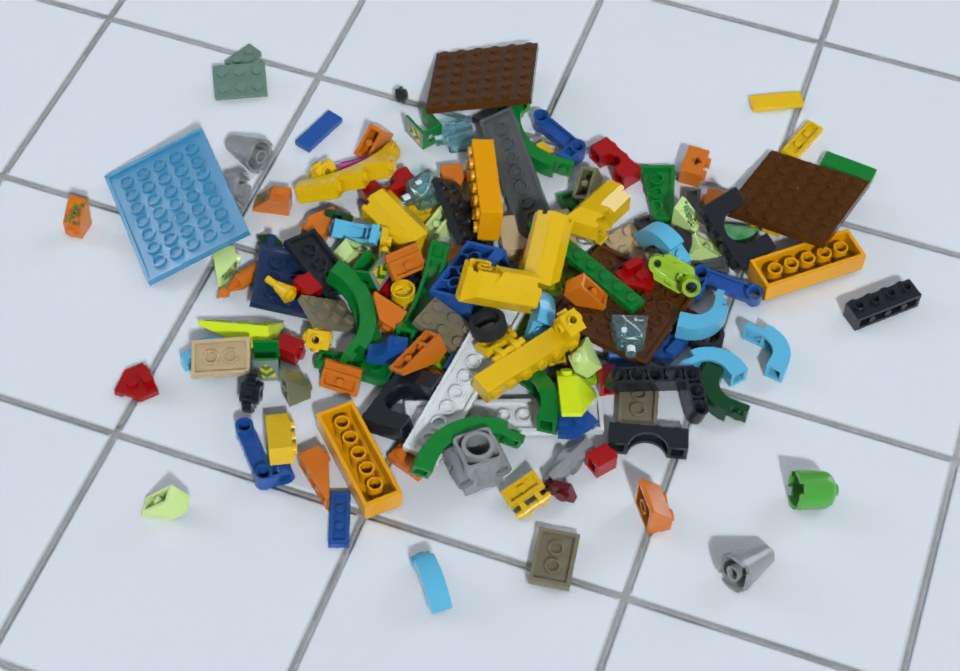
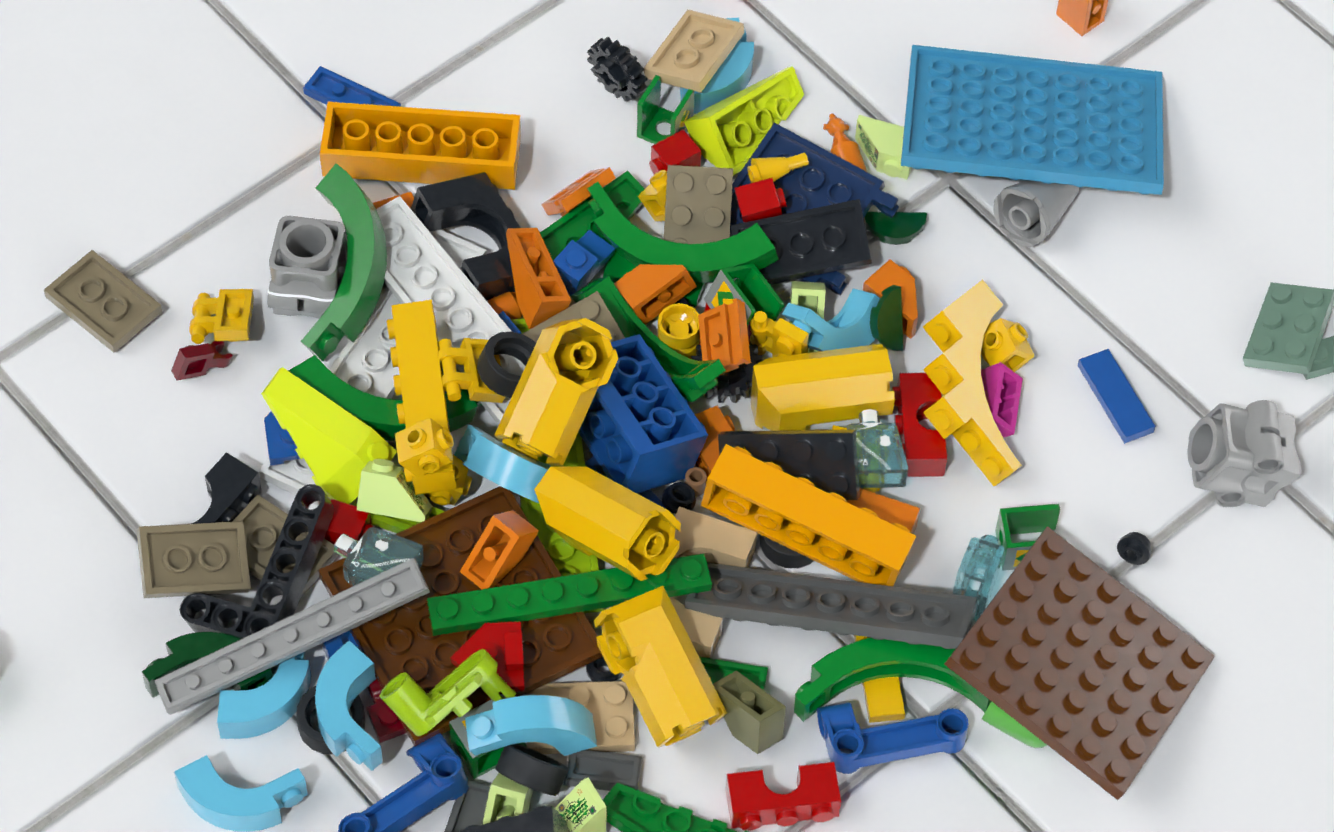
camera: 120 degrees right, 5 degrees up
(251, 151) = (1107, 266): light grey cone -> none
(257, 460) = (479, 40): blue piece -> none
(274, 201) = (983, 260): orange slope -> none
(281, 439) = (514, 67): yellow brick -> none
(294, 386) = (597, 124): olive slope -> none
(315, 467) = (430, 92): orange slope -> none
(333, 63) = (1244, 453): none -> light grey piece
(373, 140) = (1041, 454): orange slope -> none
(432, 581) = (176, 134): medium azure arch -> none
(569, 461) = (239, 400): light grey piece -> none
(601, 460) = (211, 439): red brick -> none
(653, 507) = (82, 451): orange slope -> none
(678, 418) = (193, 559): none -> dark tan plate
(691, 349) = (291, 636): none -> light grey tile

